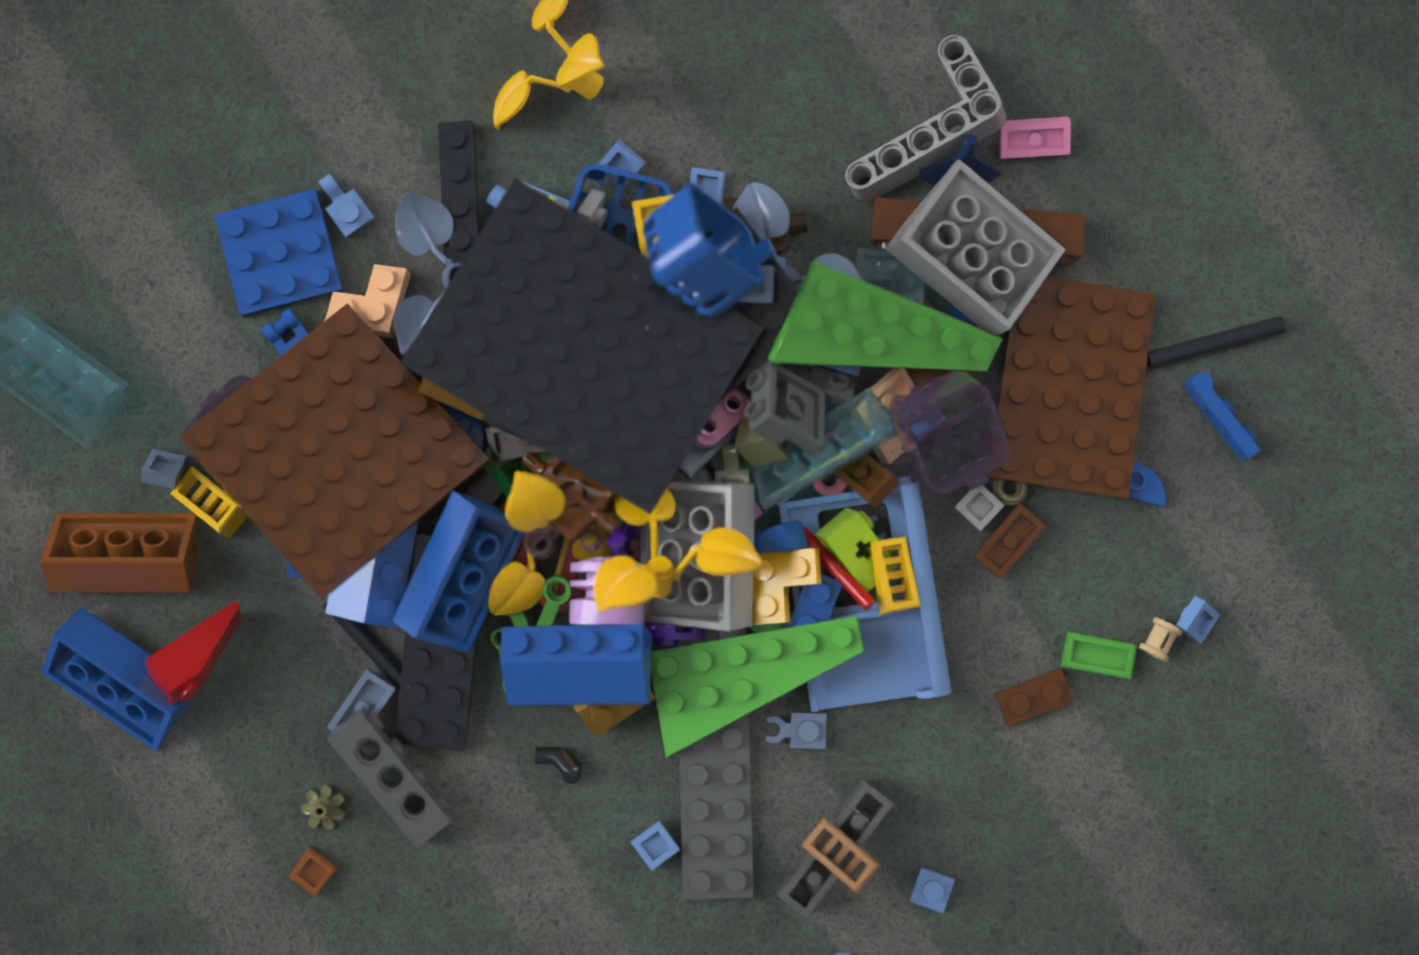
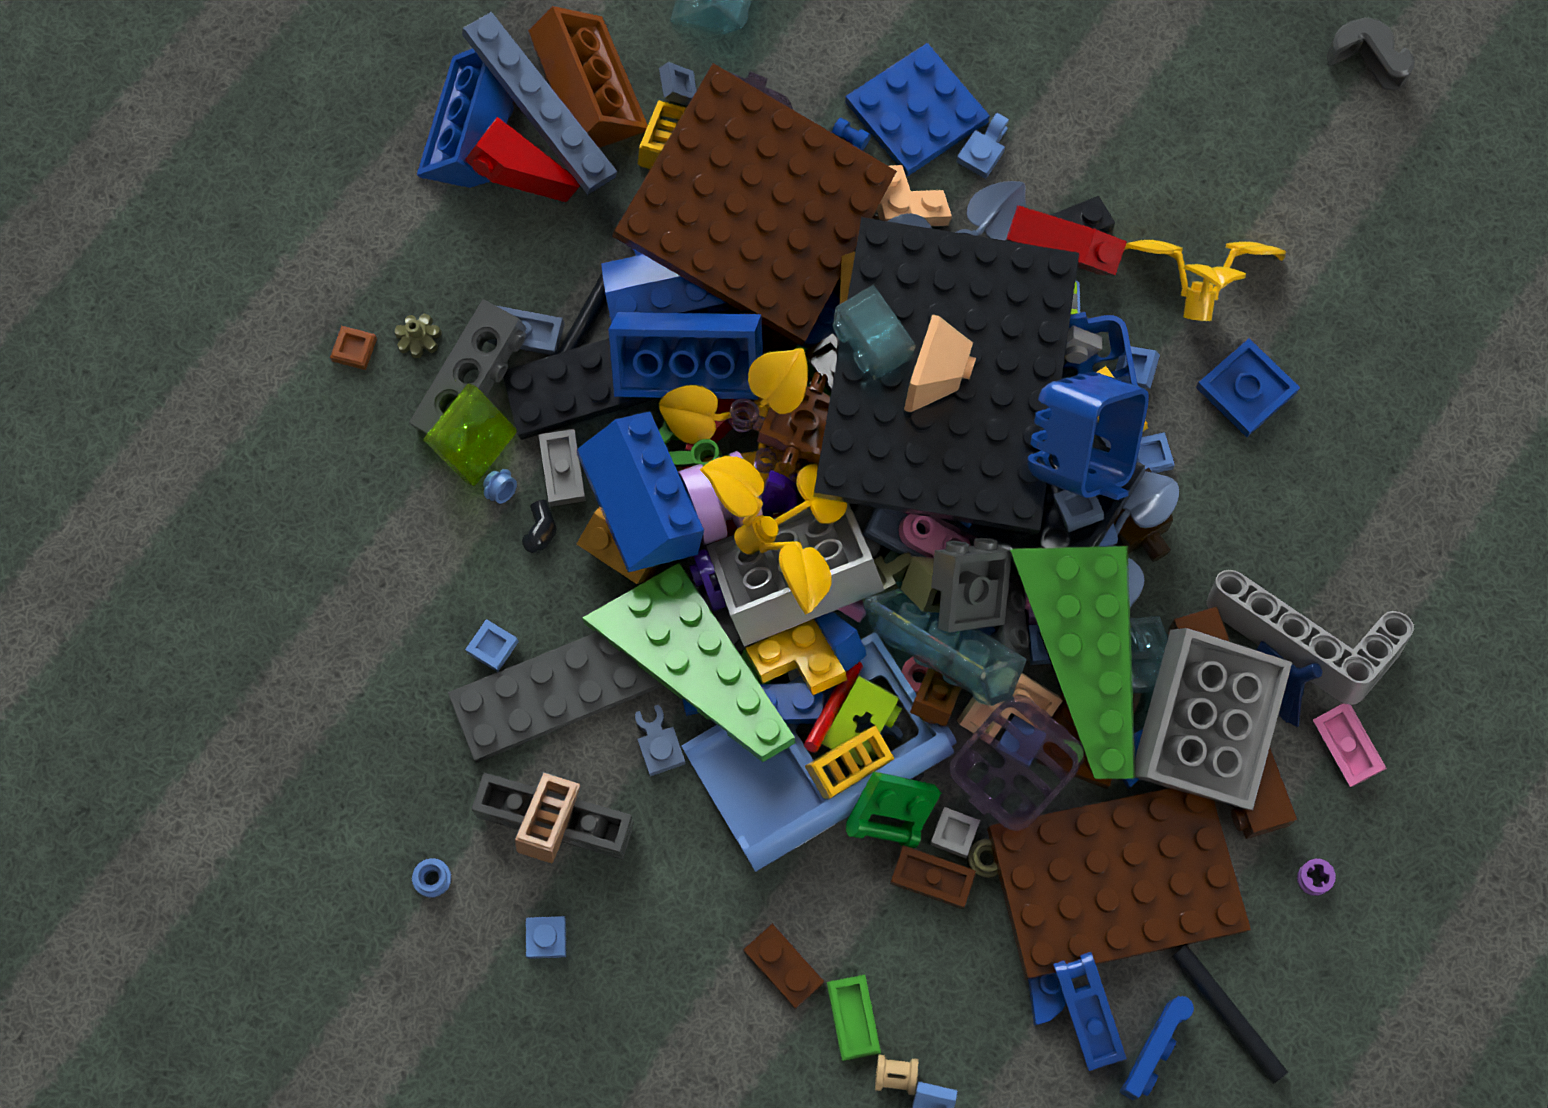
camera: 70 degrees right, 15 degrees down
(138, 613) = (539, 103): none -> sand blue plate
(451, 795) = (470, 434): none -> clear neon green plate
(479, 175) = (1097, 250): none -> red slope
(506, 785) = (499, 486): none -> medium blue plate
(510, 723) = (562, 467): none -> light grey plate
(527, 402) = (873, 333): none -> clear light blue brick
(584, 355) = (940, 365): none -> light nougat slope
(679, 73) = (1247, 387): none -> blue plate
(937, 550) = (896, 799): none -> green plate
(1129, 208) = (1306, 883): none -> medium lavender bush
(1175, 459) = (1090, 1013): none -> blue plate

